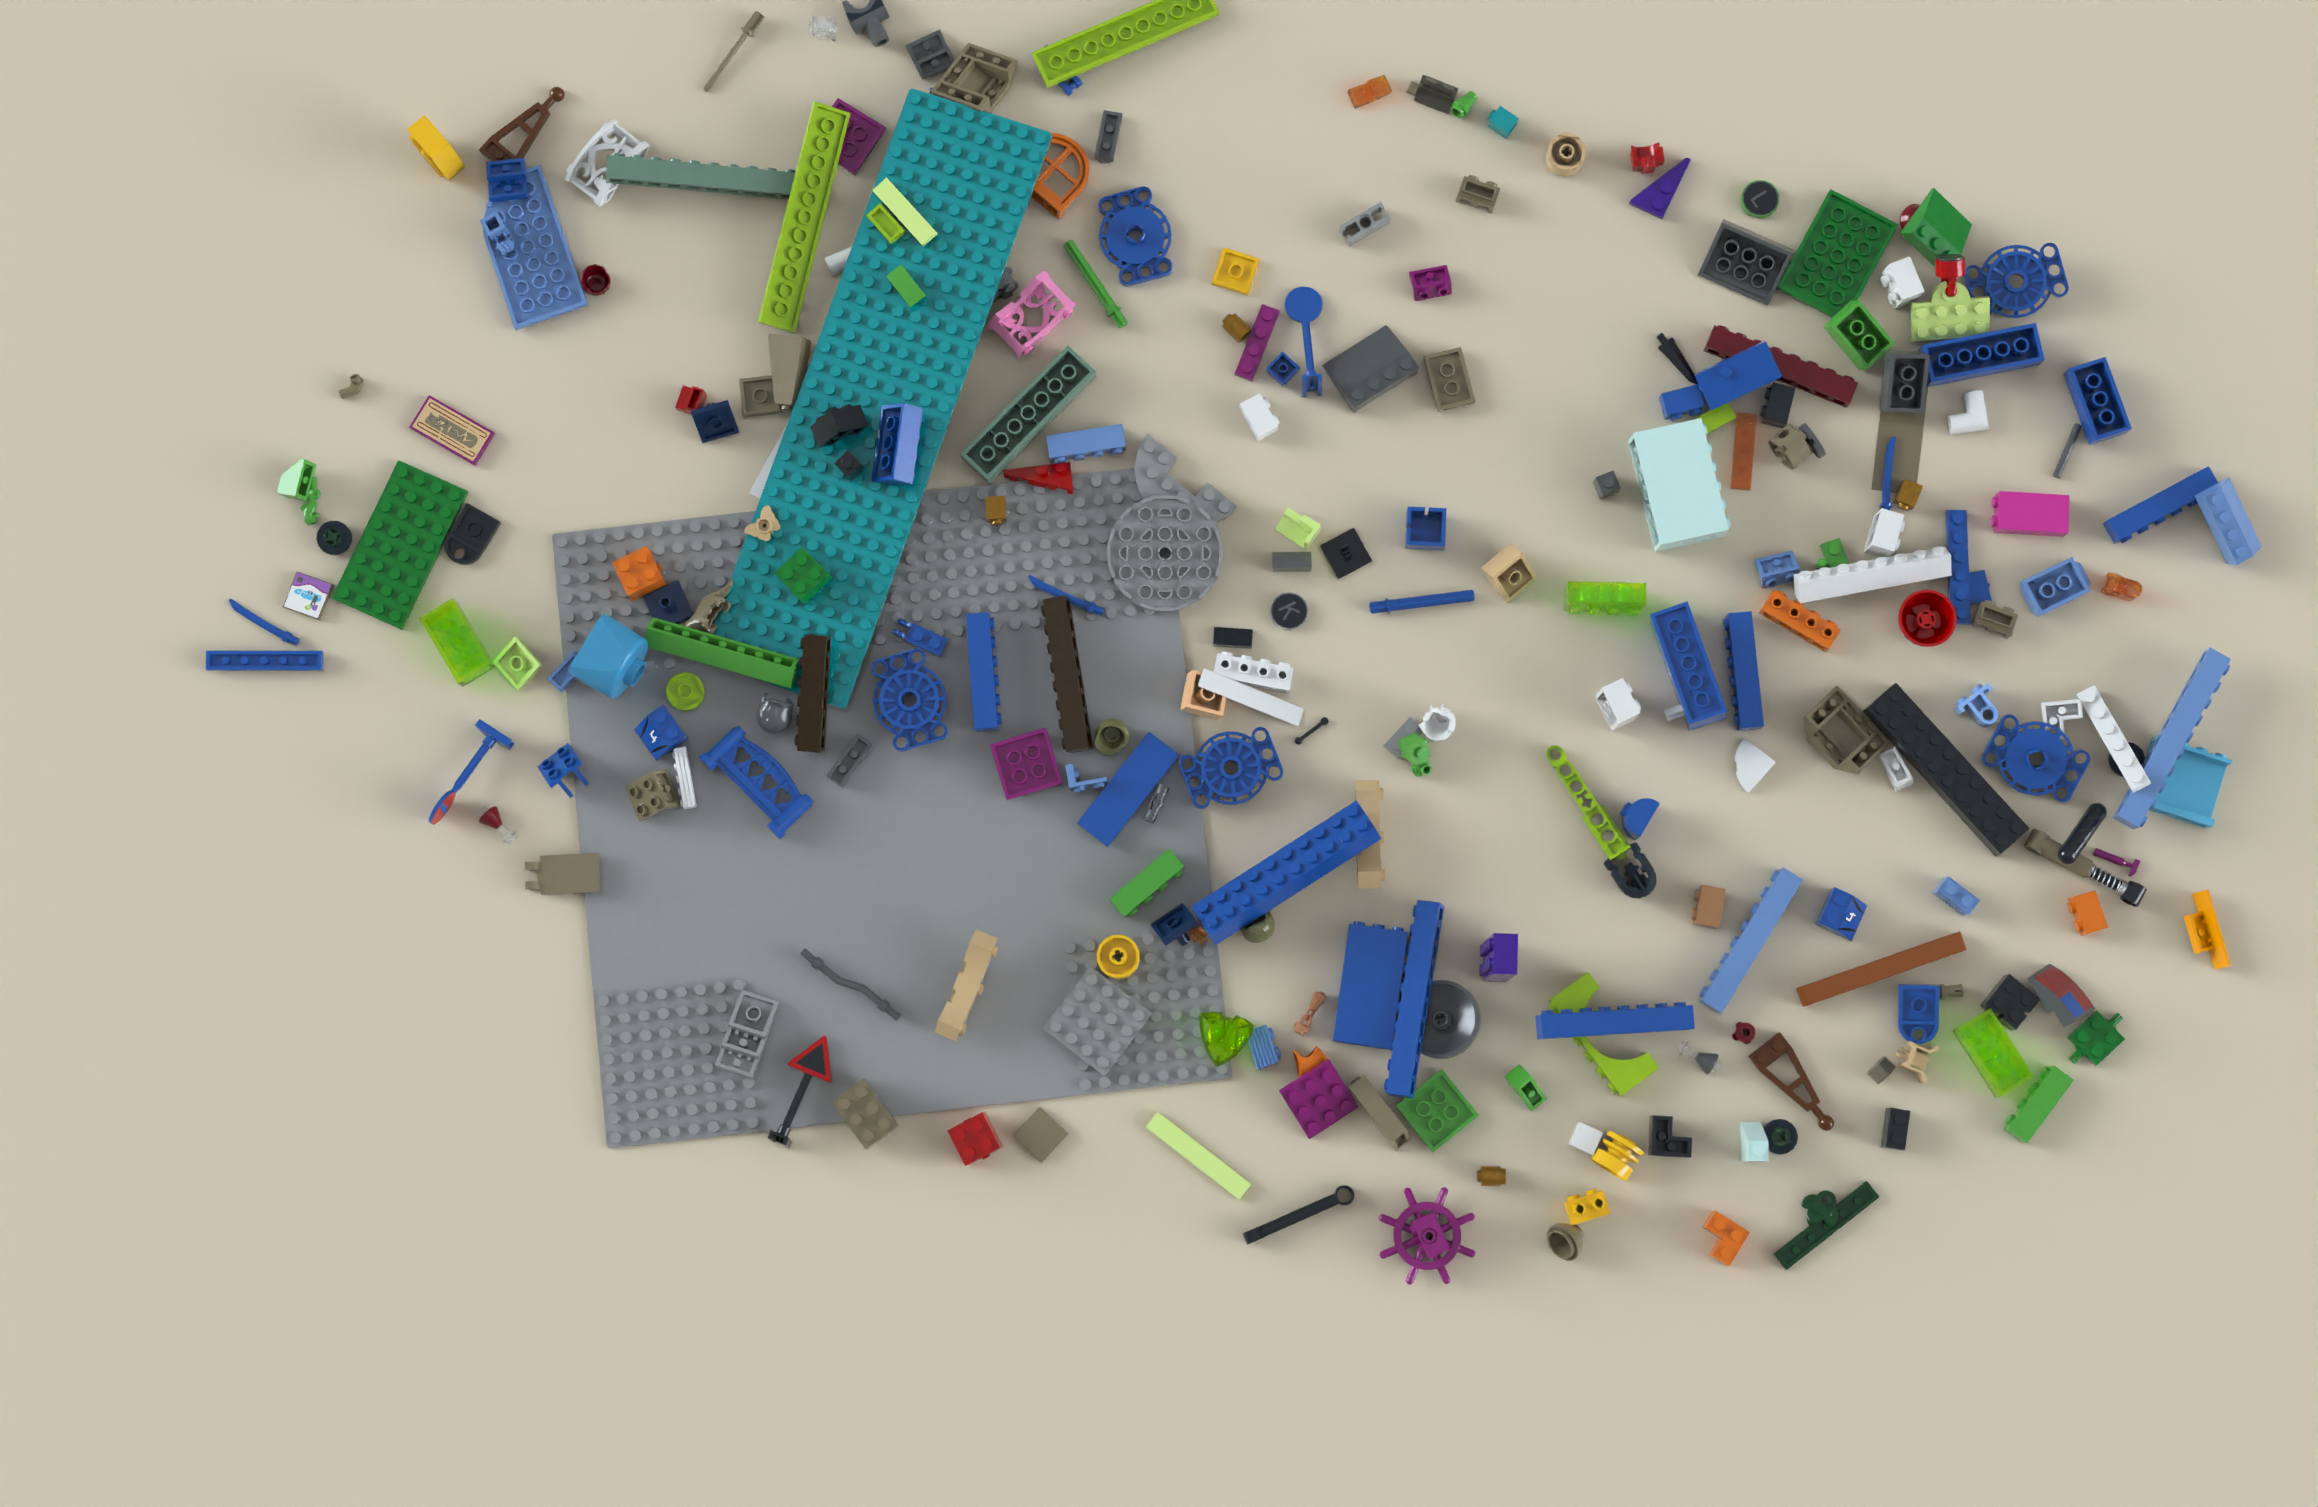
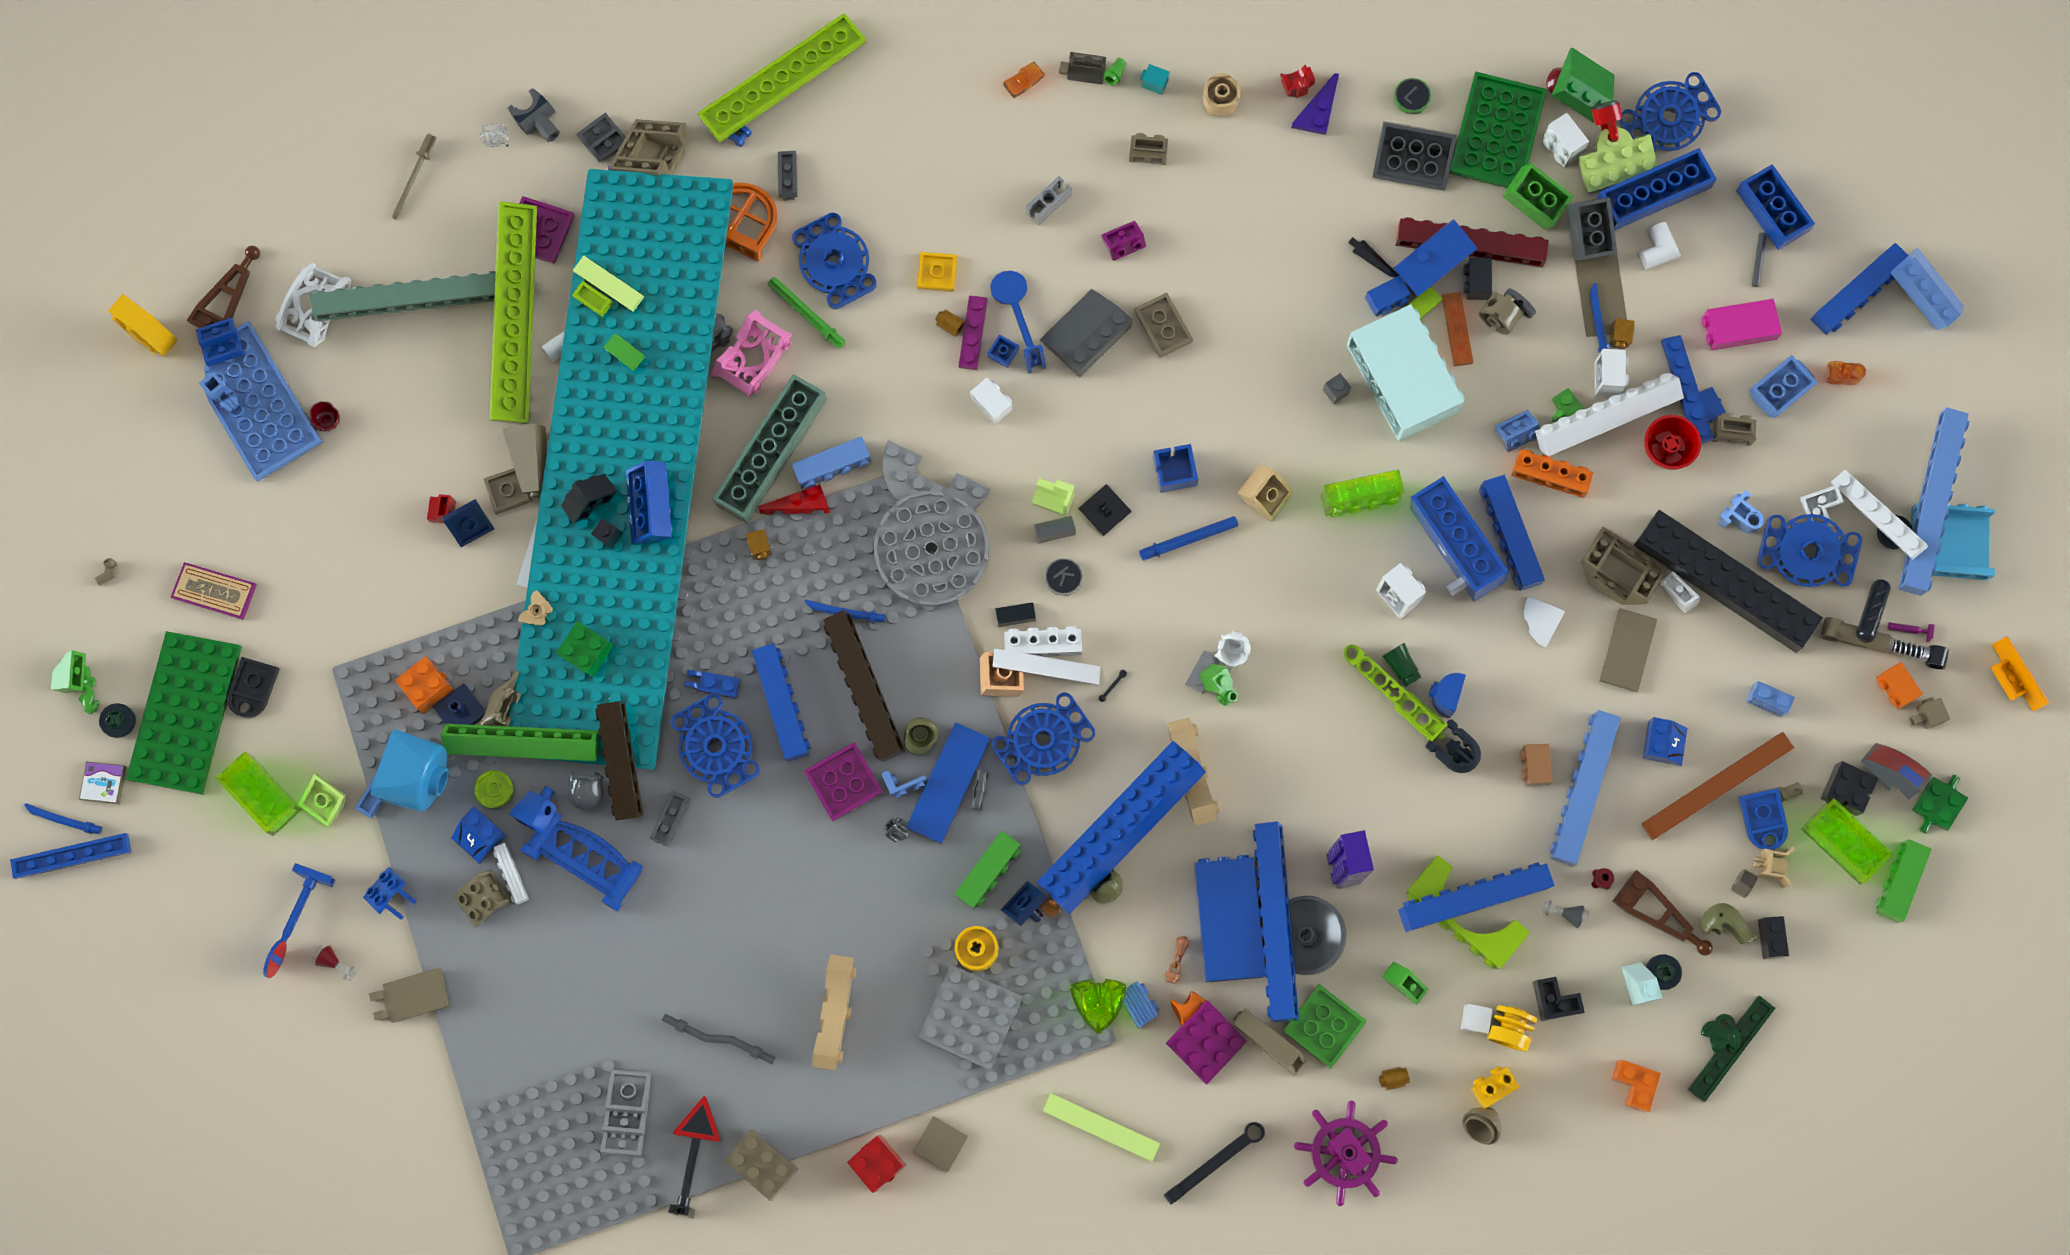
camera: 15 degrees left, 5 degrees down
(721, 722) = (535, 810): none -> blue torso
(1067, 823) = (896, 829): none -> dark grey gear
(1602, 777) = (1402, 664): none -> dark green plant
(1829, 814) = (1628, 650): none -> dark tan tile
(1857, 1099) = (1726, 916): none -> olive piece
(2112, 947) = (1931, 713): none -> dark tan brick

